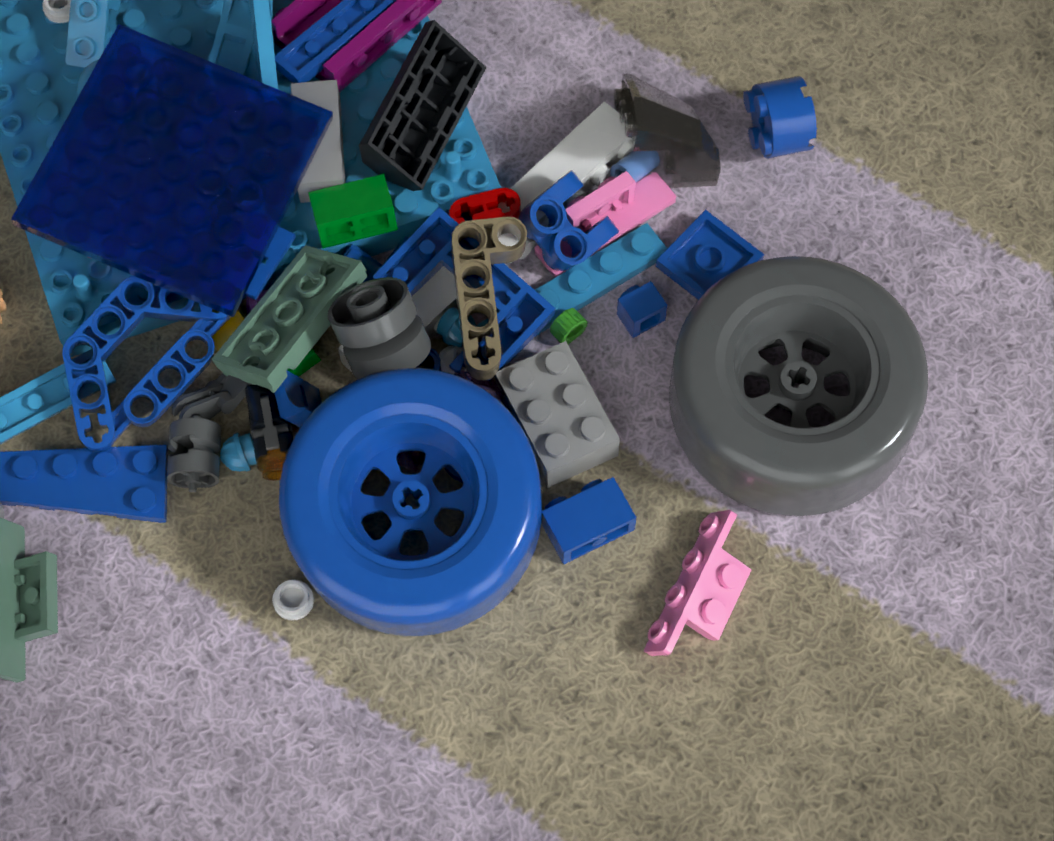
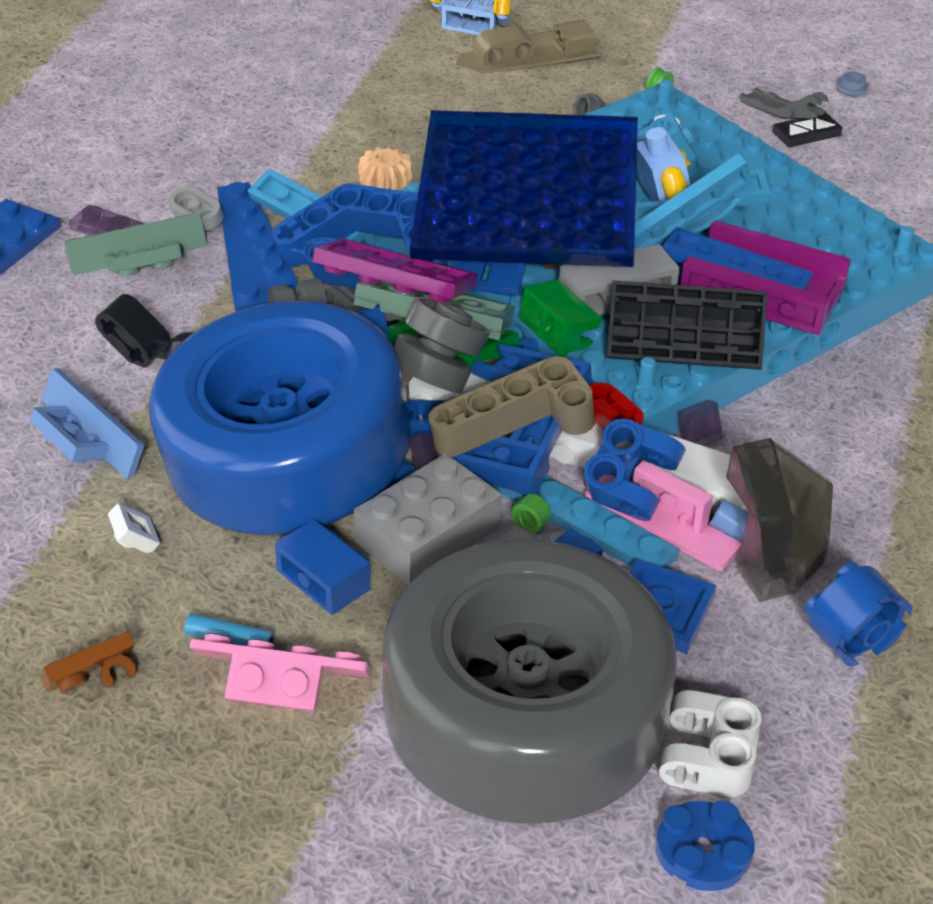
camera: 70 degrees right, 25 degrees down
(172, 26) = (661, 165): none -> light blue torso
(197, 620) = (136, 331): none -> black beam
(238, 345) = (405, 273): none -> magenta plate
(314, 707) = (84, 427): none -> medium blue bracket
(485, 680) = (133, 529): none -> white plate
(499, 147) = (700, 423): none -> clear purple plate
(638, 621) = (239, 634): none -> dark azure piece
(652, 748) = (71, 671): none -> dark orange plate
(879, 261) = (731, 756): none -> white piece
(972, 303) = (710, 820): none -> blue plate

